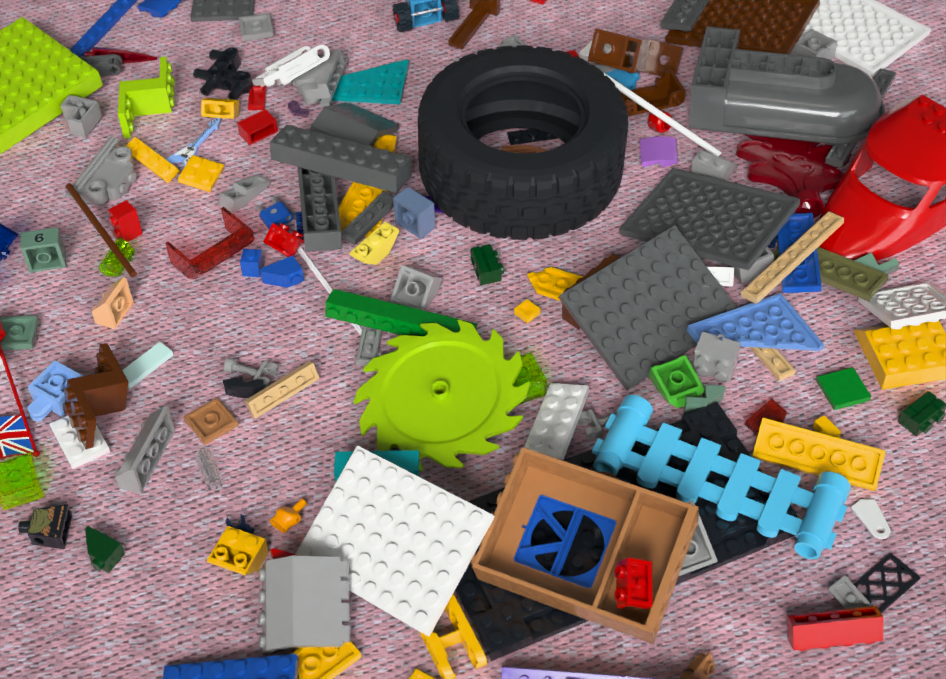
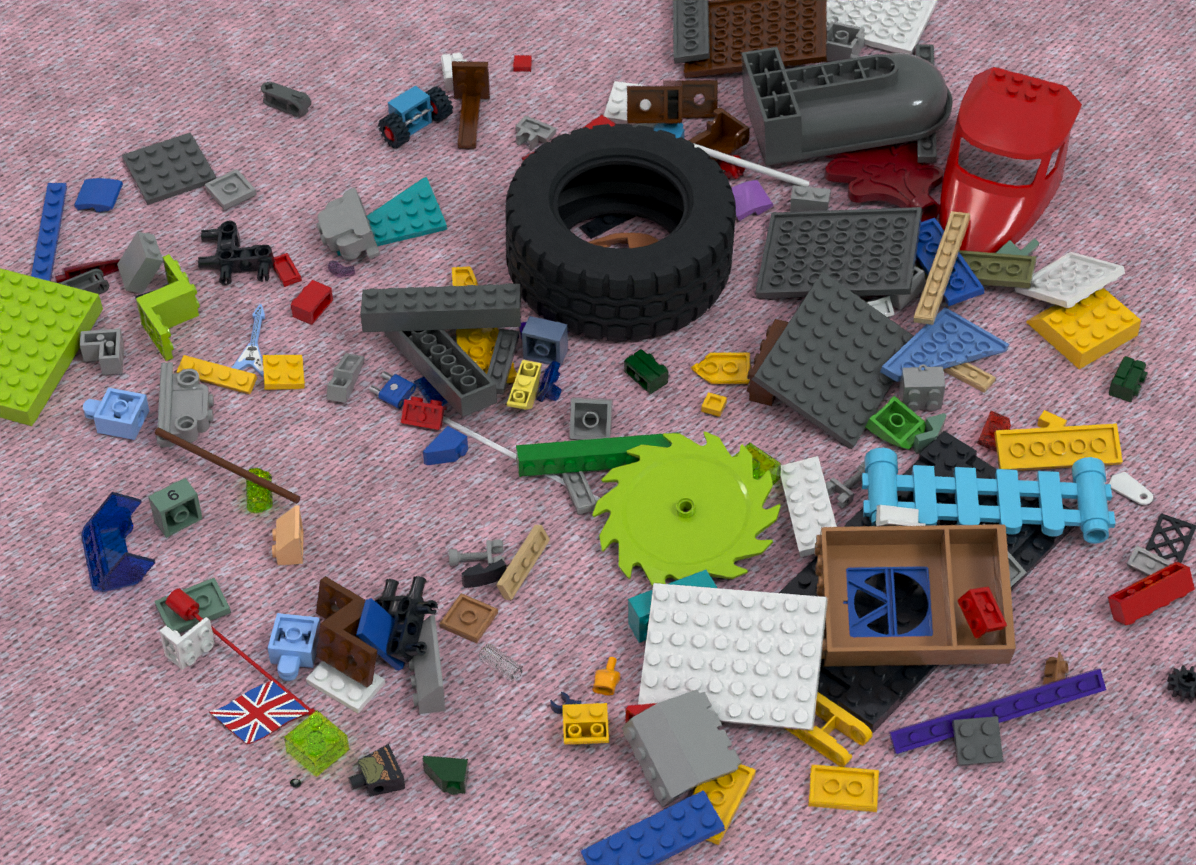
camera: 25 degrees left, 0 degrees up
(57, 165) = (118, 413): none -> light blue brick
(122, 407) = (375, 630): none -> blue tile
(124, 221) = (244, 447): red piece -> none
(147, 57) = (140, 262): none -> light grey brick
(147, 363) = (366, 579): light aqua tile -> none
(152, 394) = (409, 617): none -> black pin
(220, 108) = (257, 293): yellow brick -> none
(240, 238) = (379, 432): clear red windscreen -> none
(251, 262) = (406, 447): blue brick -> none
(291, 66) = (309, 226): white plate -> none
(352, 124) = (417, 267): dark grey hinge -> none
(397, 254) = (547, 388): none -> clear blue hinge
(617, 465) = (896, 516): none -> white panel
(843, 388) = (1046, 379): green tile -> none

